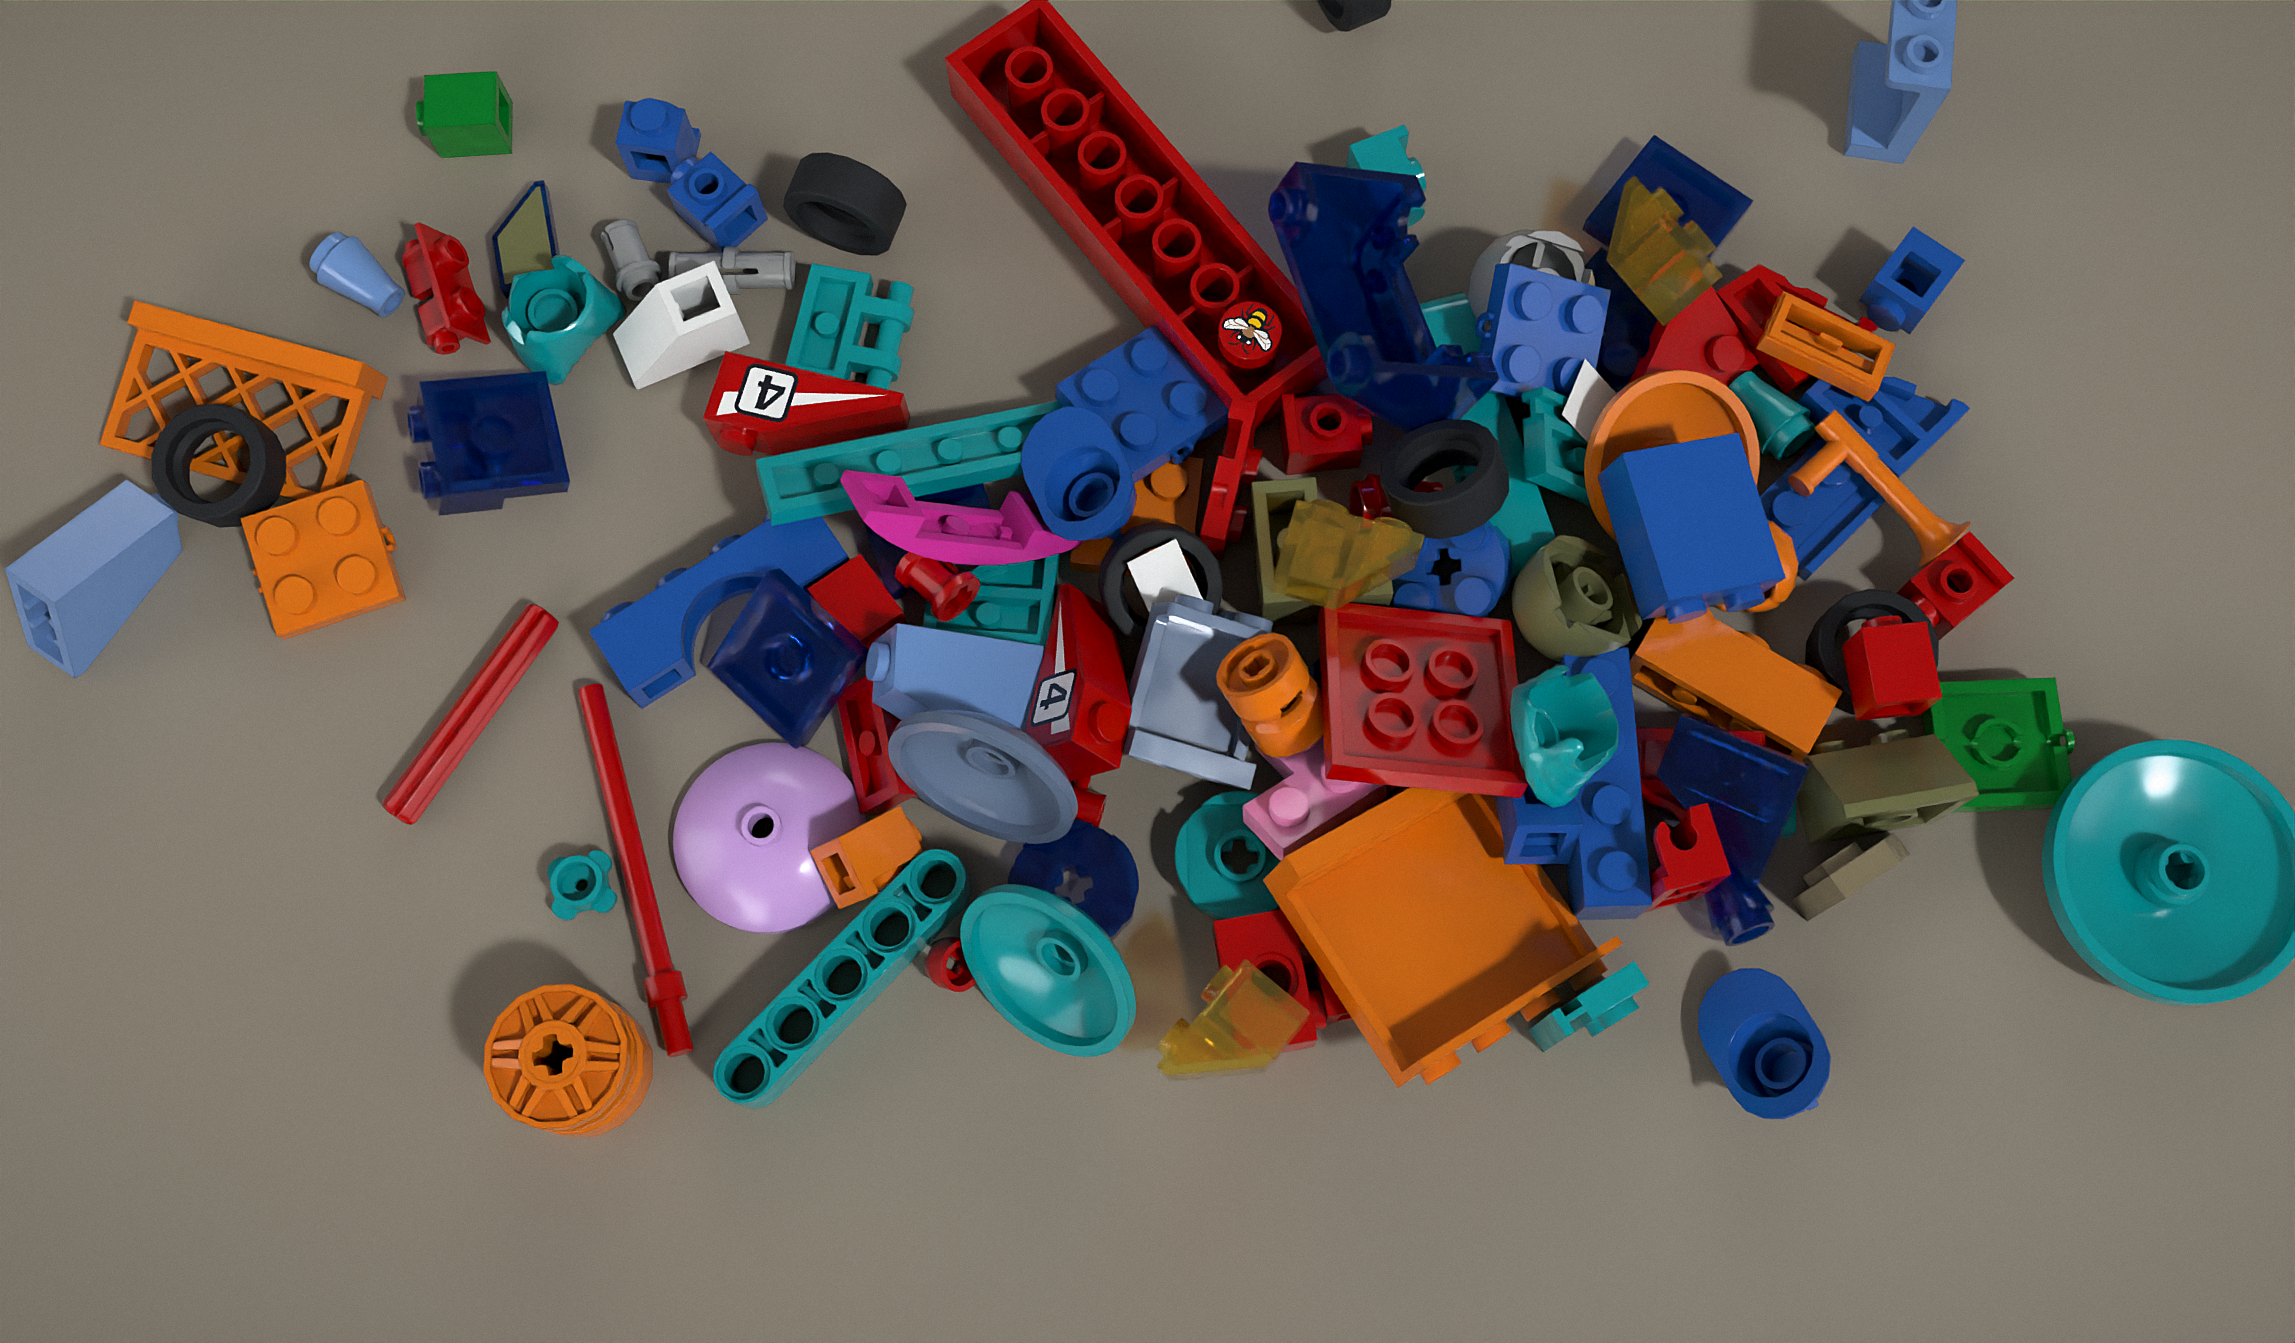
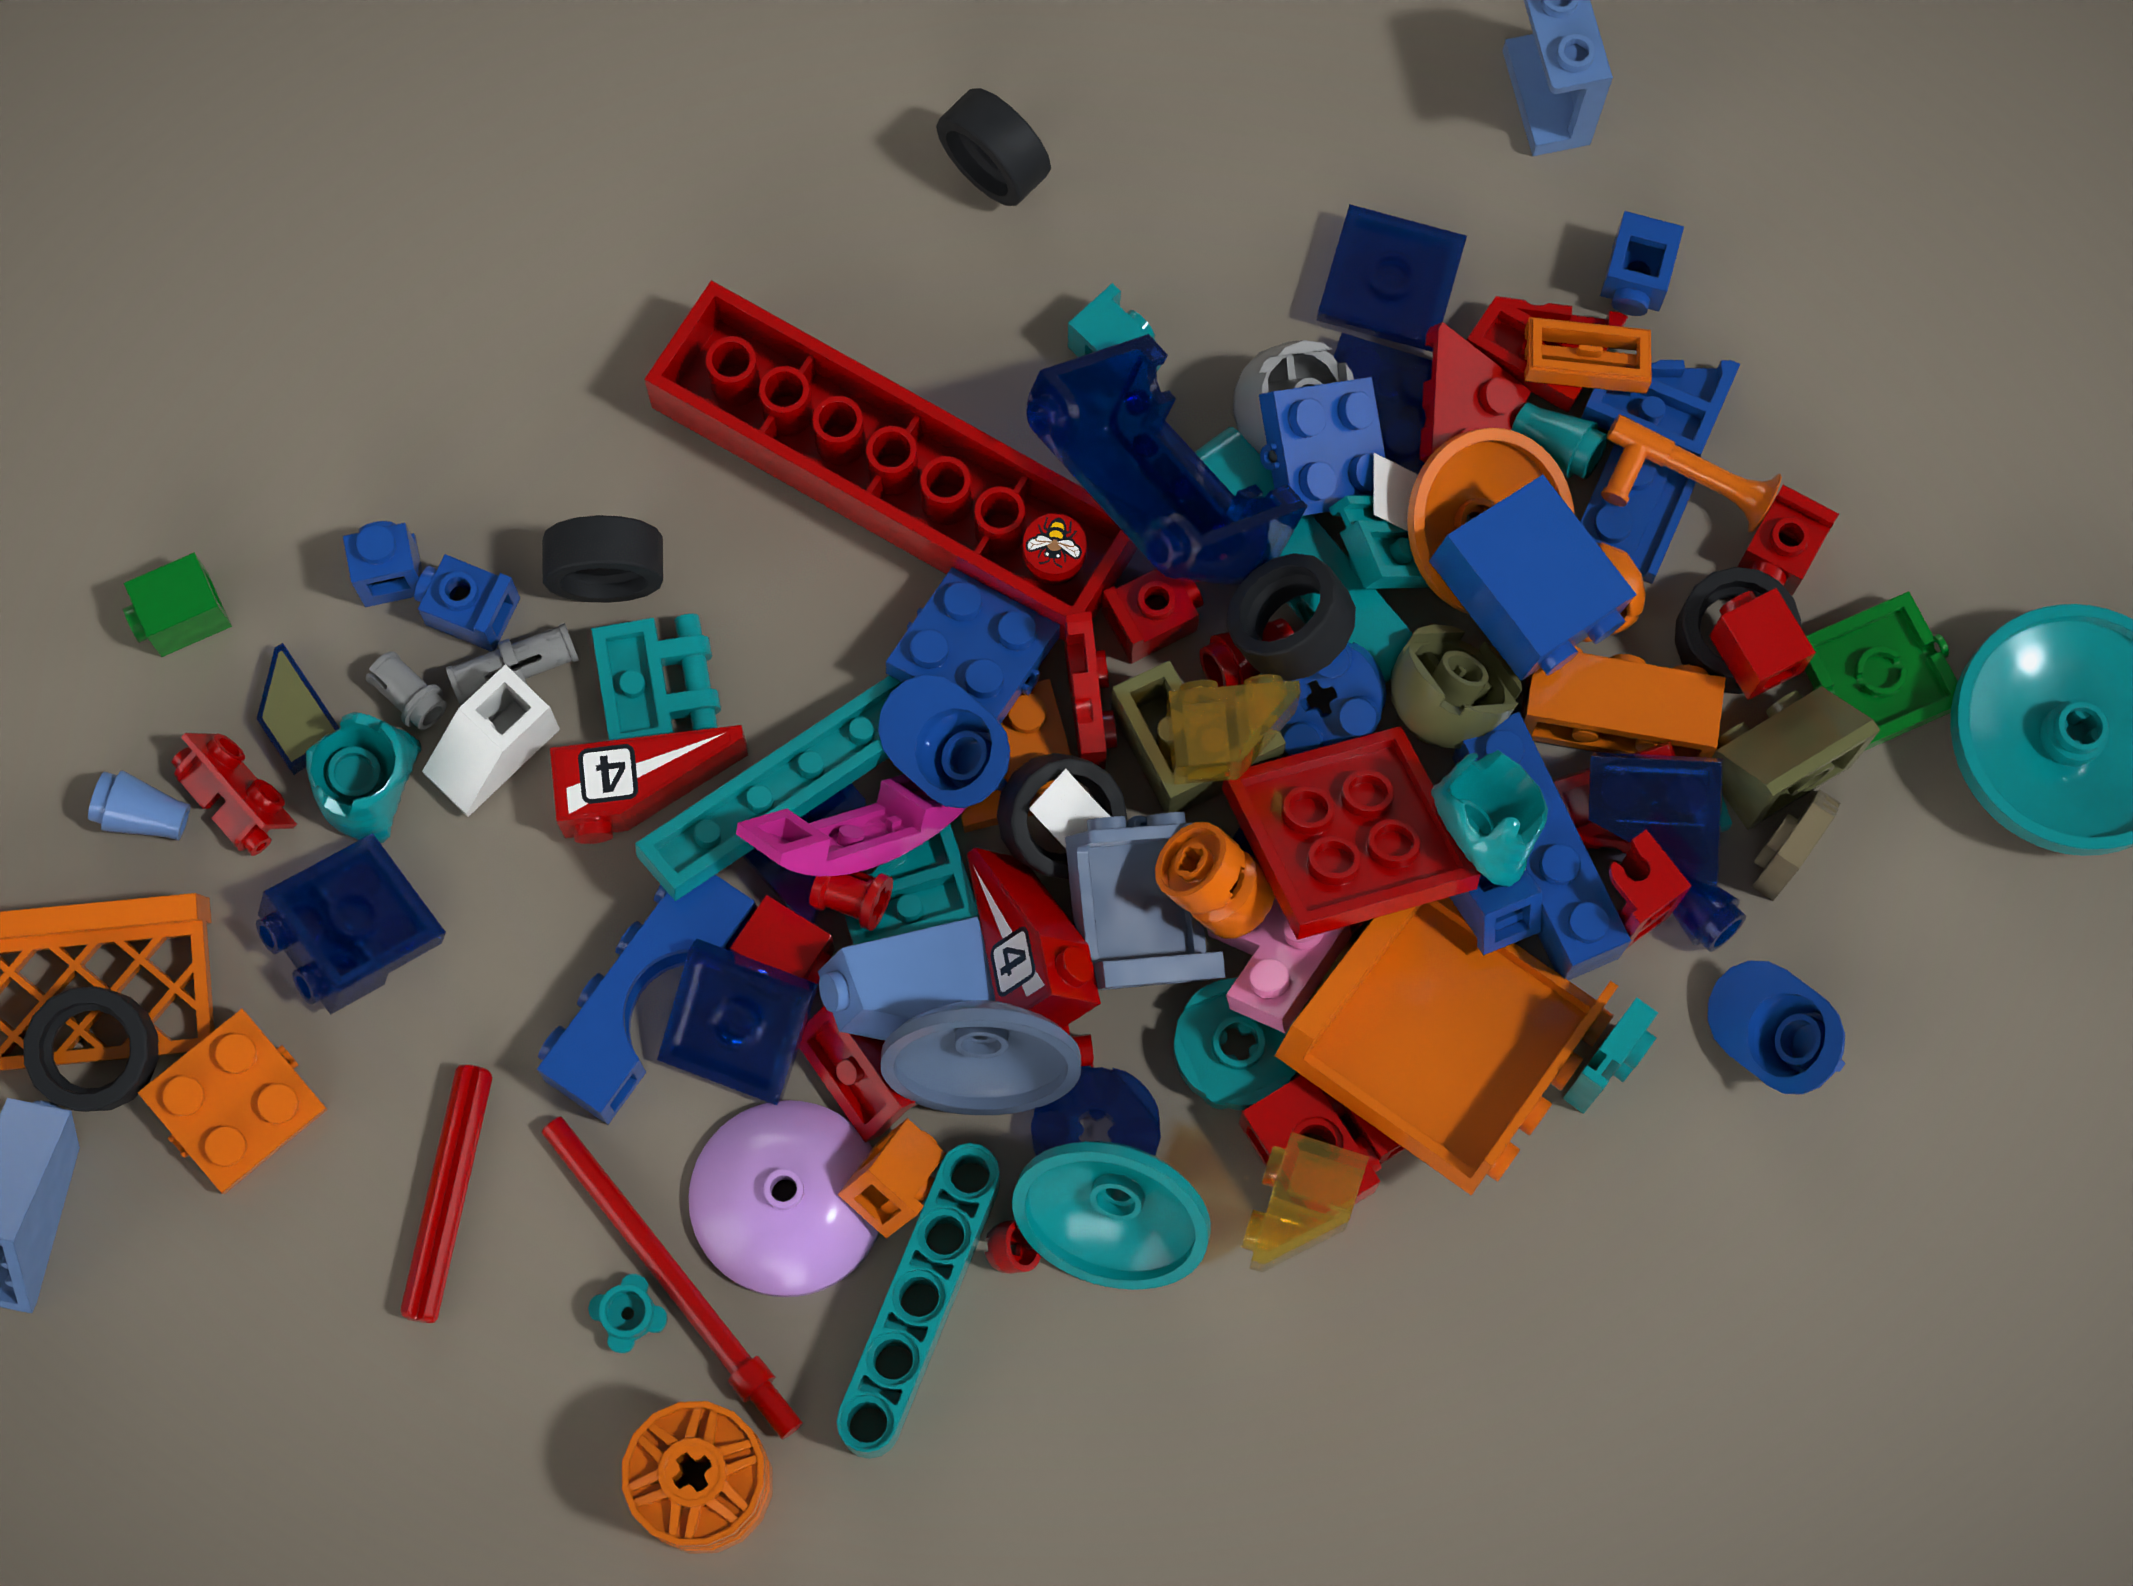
camera: 25 degrees left, 0 degrees up
(1656, 255) = (1402, 329): clear yellow slope -> none

